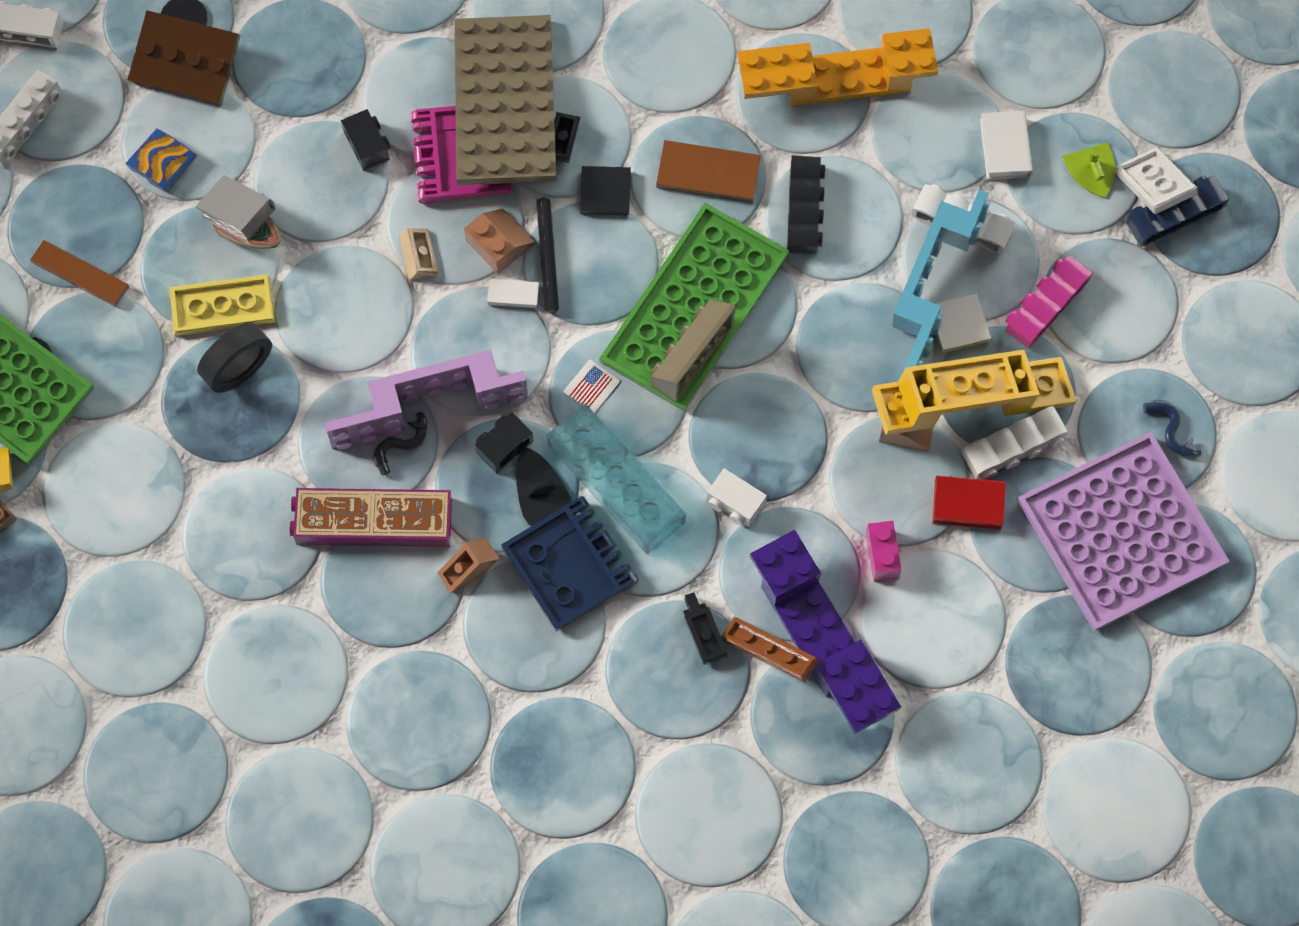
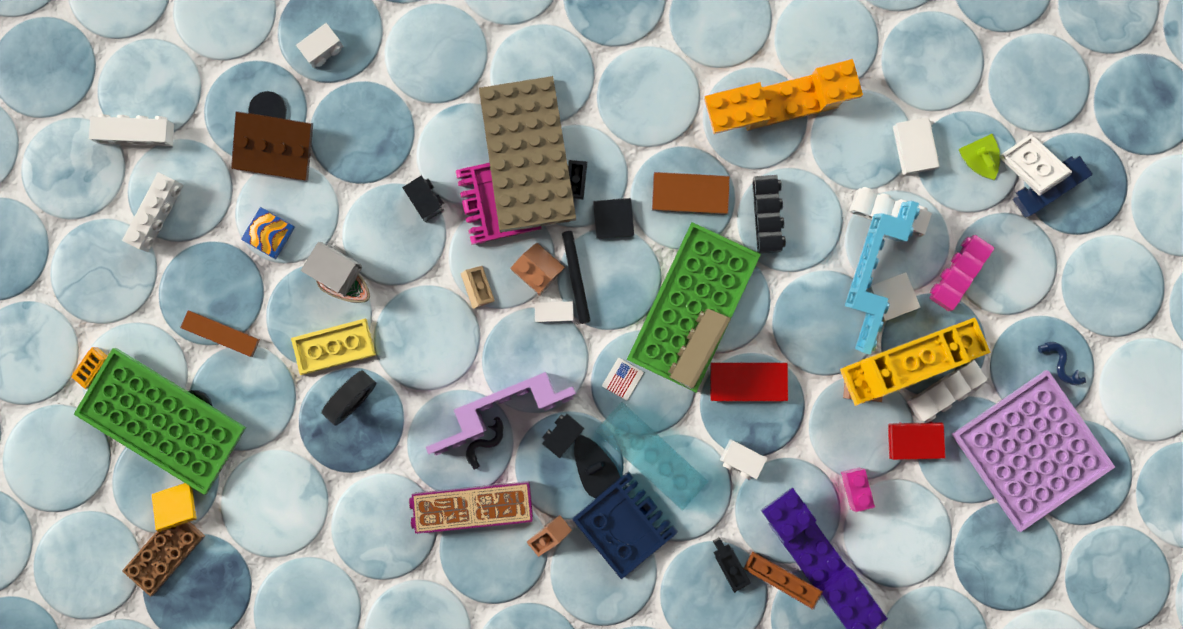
camera: 10 degrees left, 15 degrees up
(755, 404) = (748, 381): none -> red tile

